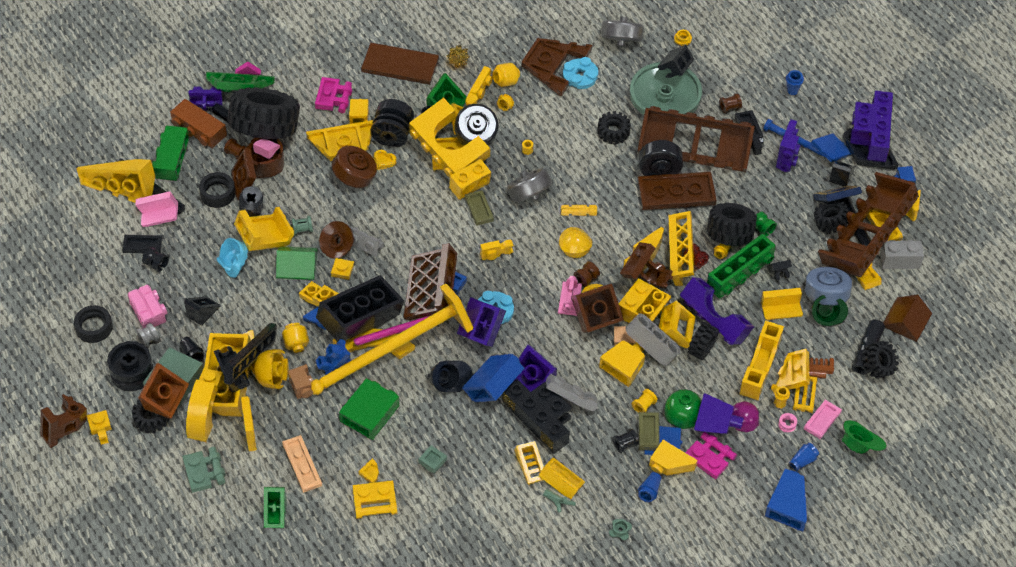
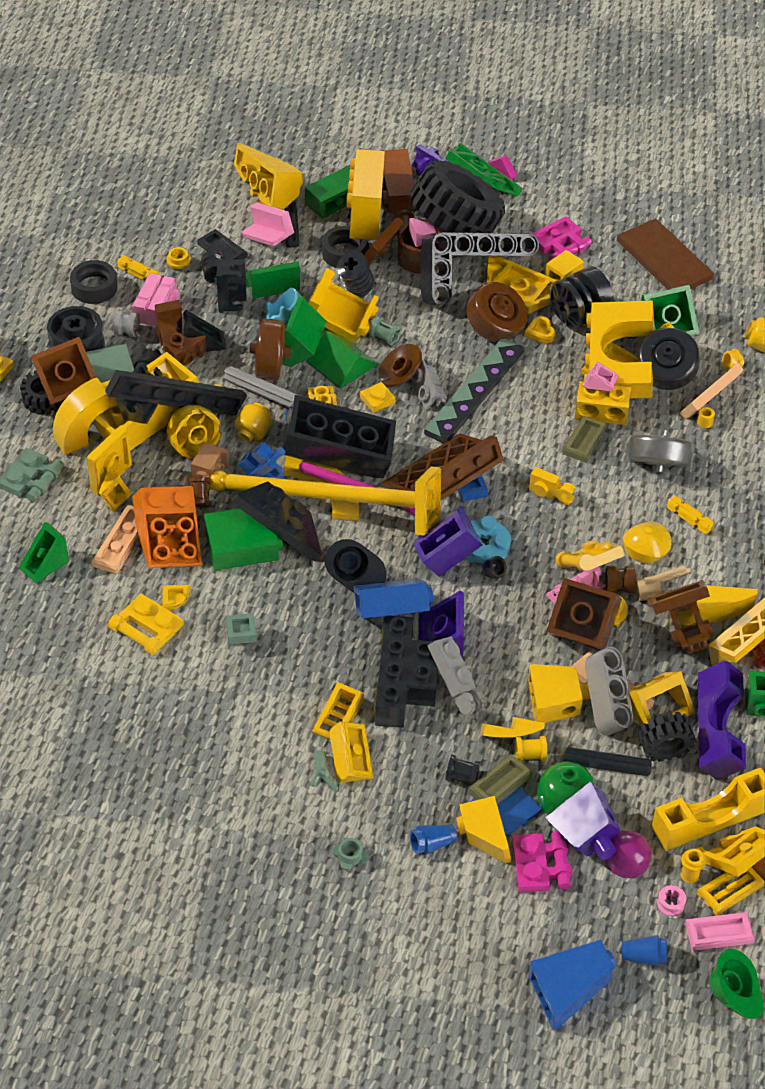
camera: 45 degrees right, 5 degrees down
(109, 295) = (135, 267): none -> yellow axle
(125, 266) = (178, 258): none -> yellow plate
(185, 264) = (231, 284): none -> black hinge
(188, 324) = (169, 330): none -> reddish brown tile
(198, 240) = (273, 279): none -> green slope
(203, 144) = (365, 193): none -> yellow wedge
(259, 286) = (270, 349): none -> reddish brown wheel
(264, 263) = (303, 332): none -> green slope
(267, 439) = (114, 491): none -> yellow slope
(278, 312) = (259, 386): none -> light grey axle
(291, 147) = (469, 247): none -> black beam
(317, 401) = (201, 490): none -> reddish brown bush
(324, 436) = (168, 526): none -> orange slope
(383, 379) = (282, 516): none -> black wing
(390, 224) = (474, 391): none -> tile
(453, 56) = (731, 285): clear yellow gear -> none
(461, 166) = (600, 378): none -> bright pink slope
(478, 89) = (720, 327): yellow hinge -> none
(515, 129) = (713, 390): none -> light nougat tile
(517, 318) = (500, 570): none -> black hinge
(562, 273) = (591, 556): none -> yellow plate
(605, 265) = (651, 587): none -> tan plant
(627, 397) = (518, 728): none -> yellow slope
(643, 299) = (645, 646): yellow slope -> none
(684, 377) = (609, 761): none -> black axle

